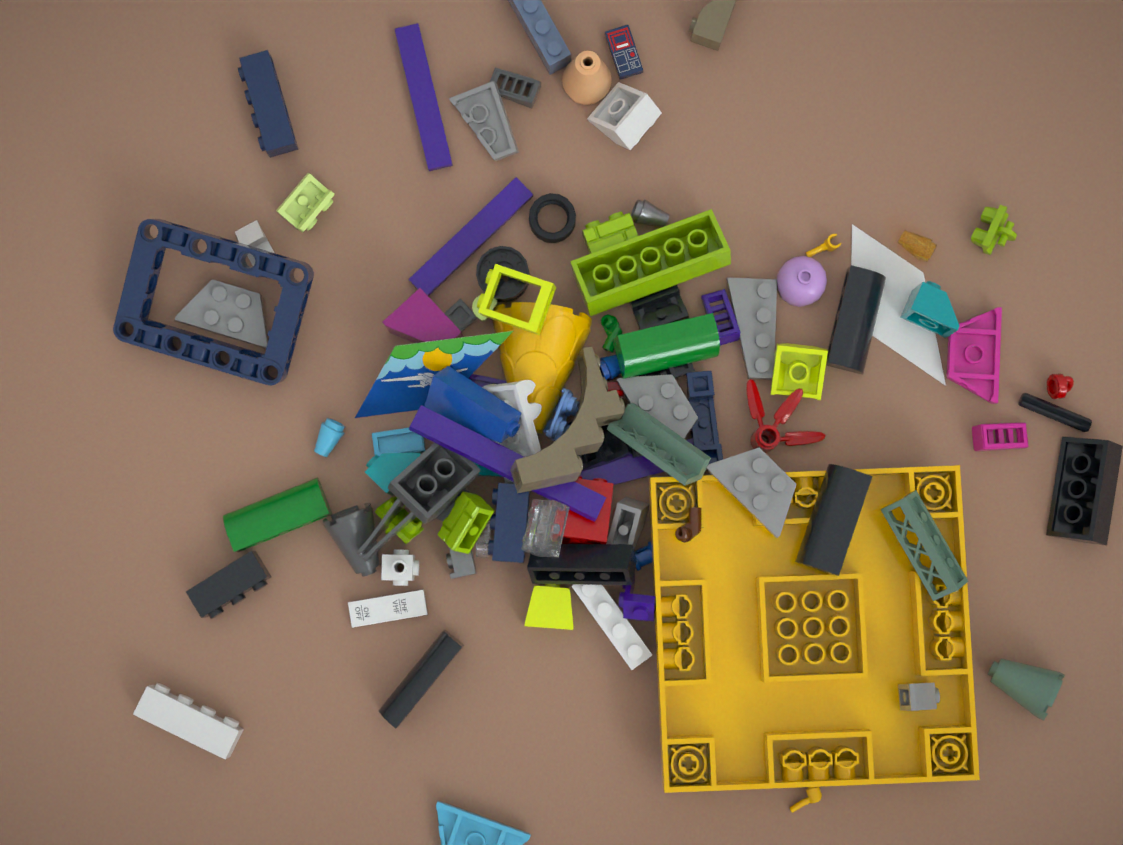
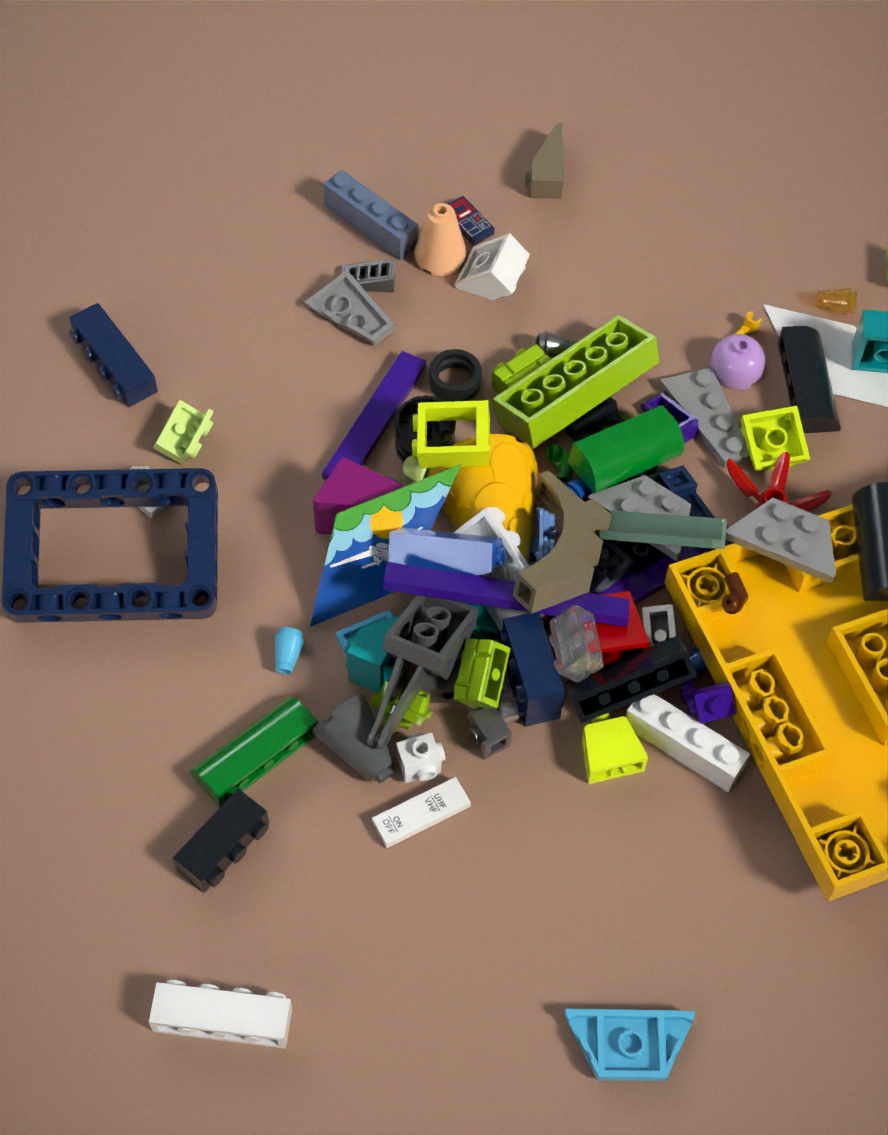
camera: 20 degrees left, 25 degrees down
(227, 312) = (127, 559): light grey wing -> none
(420, 678) = (491, 871): black brick -> none
(423, 97) = (277, 310): dark purple tile -> none

